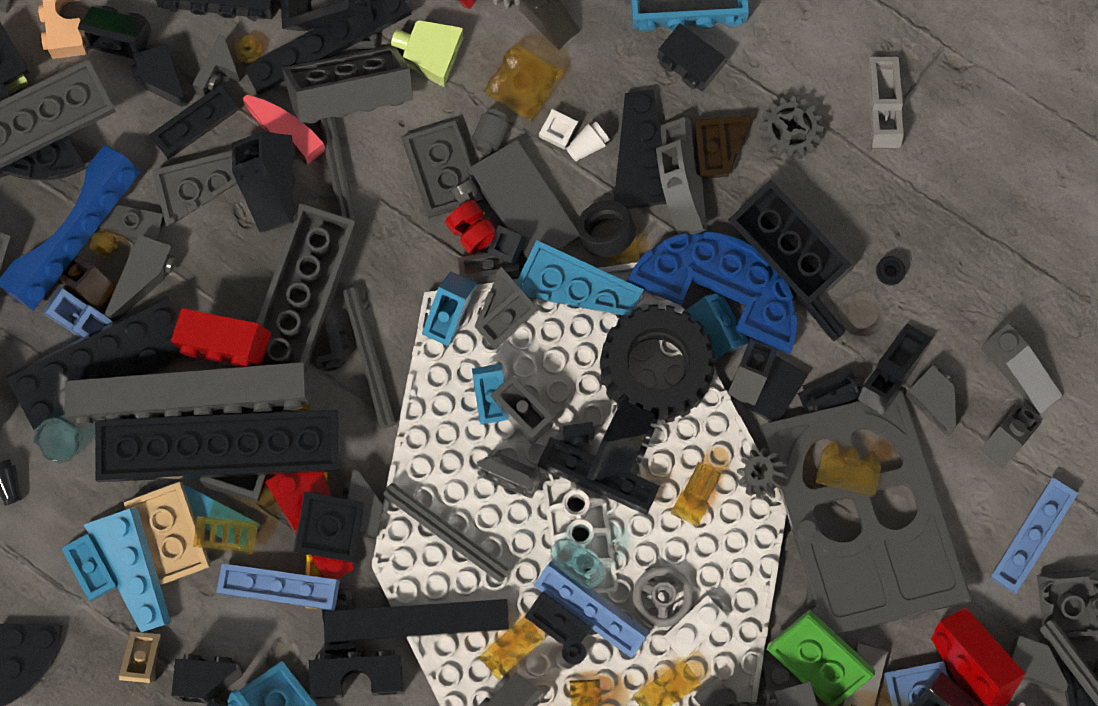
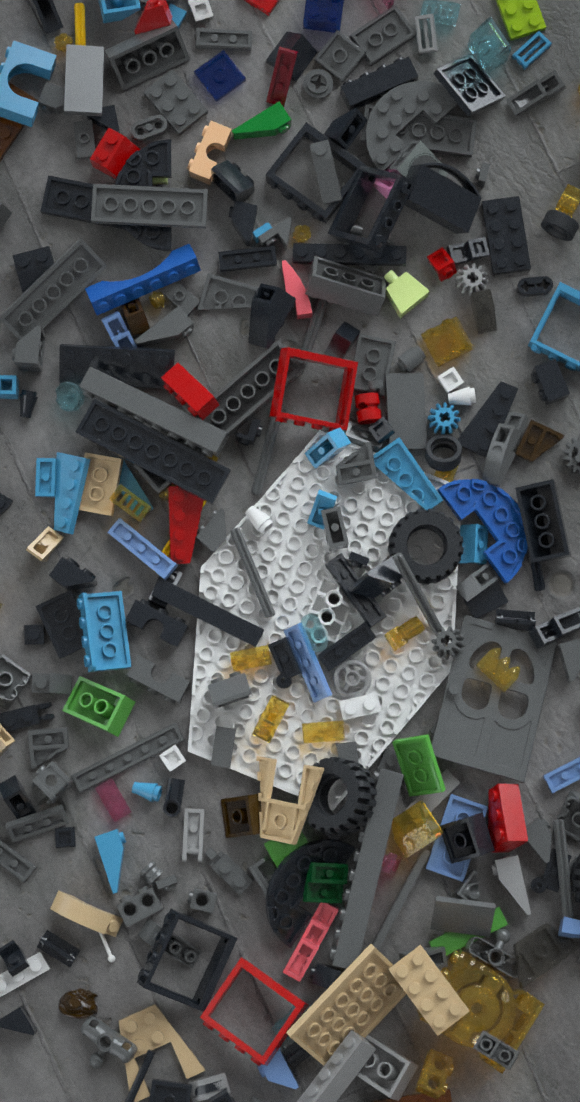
camera: 30 degrees right, 5 degrees up
(190, 76) = (260, 231): none -> dark azure tile
(328, 527) = (188, 532): black plate -> none
(385, 160) = (342, 341): none -> black slope
(415, 456) = (259, 520): none -> white cone
(431, 225) = (346, 393): none -> red window
(509, 474) = (307, 560): dark grey slope -> none
(568, 184) = (441, 412): none -> dark azure gear
(630, 557) = (346, 646): none -> black plate
(683, 429) = (417, 592): none -> dark grey axle

